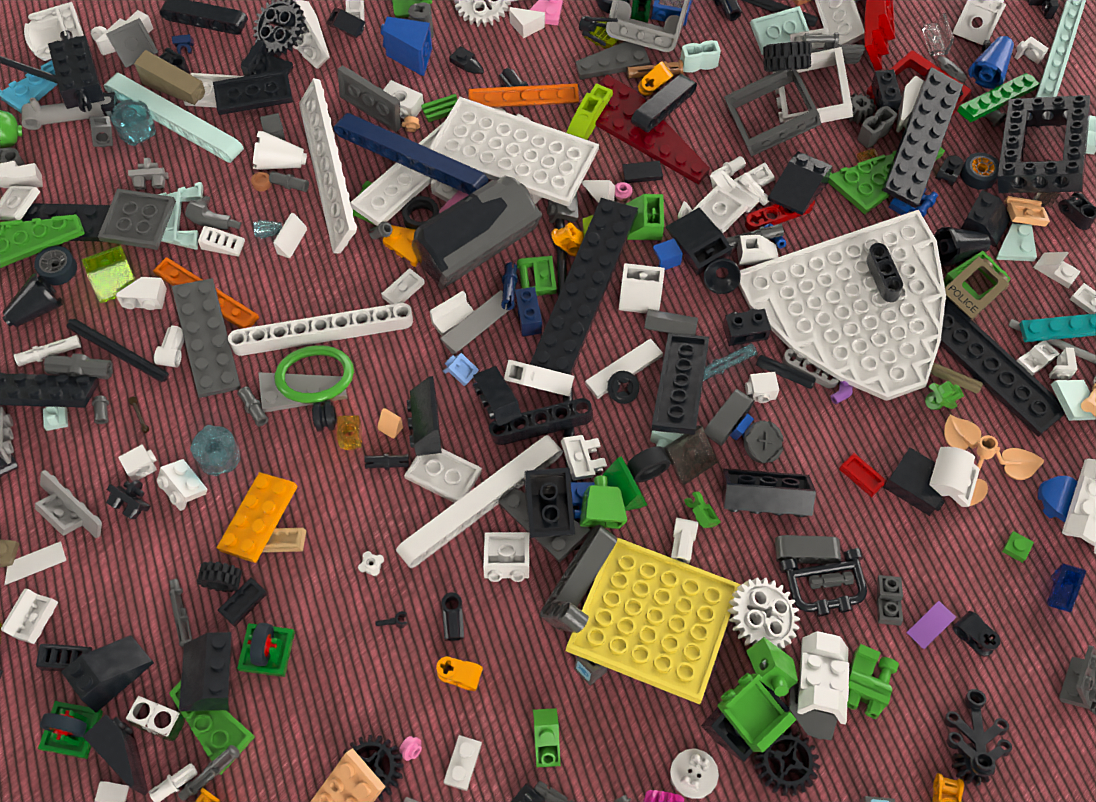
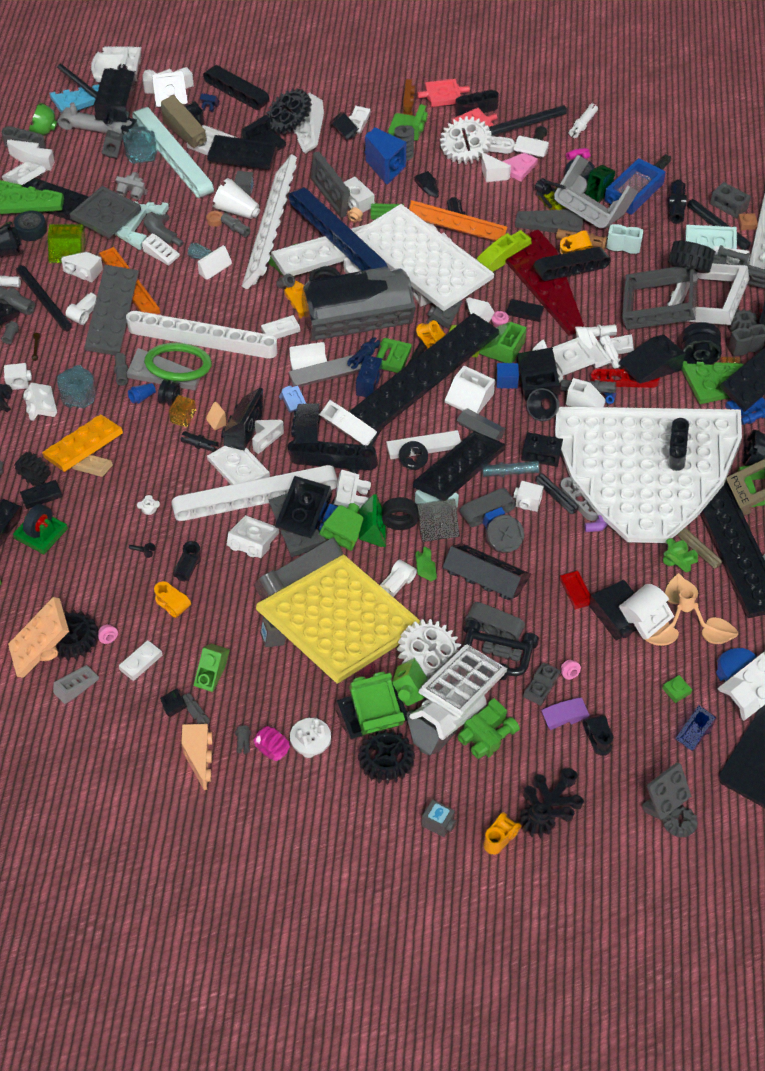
camera: 25 degrees right, 10 degrees down
(290, 427) = (140, 393): none -> blue cone
(455, 420) = (267, 433): none -> white slope
(823, 641) = (463, 681): none -> clear piece
(839, 147) = (701, 343): none -> black wheel
(909, 572) = (570, 669): none -> bright pink plate

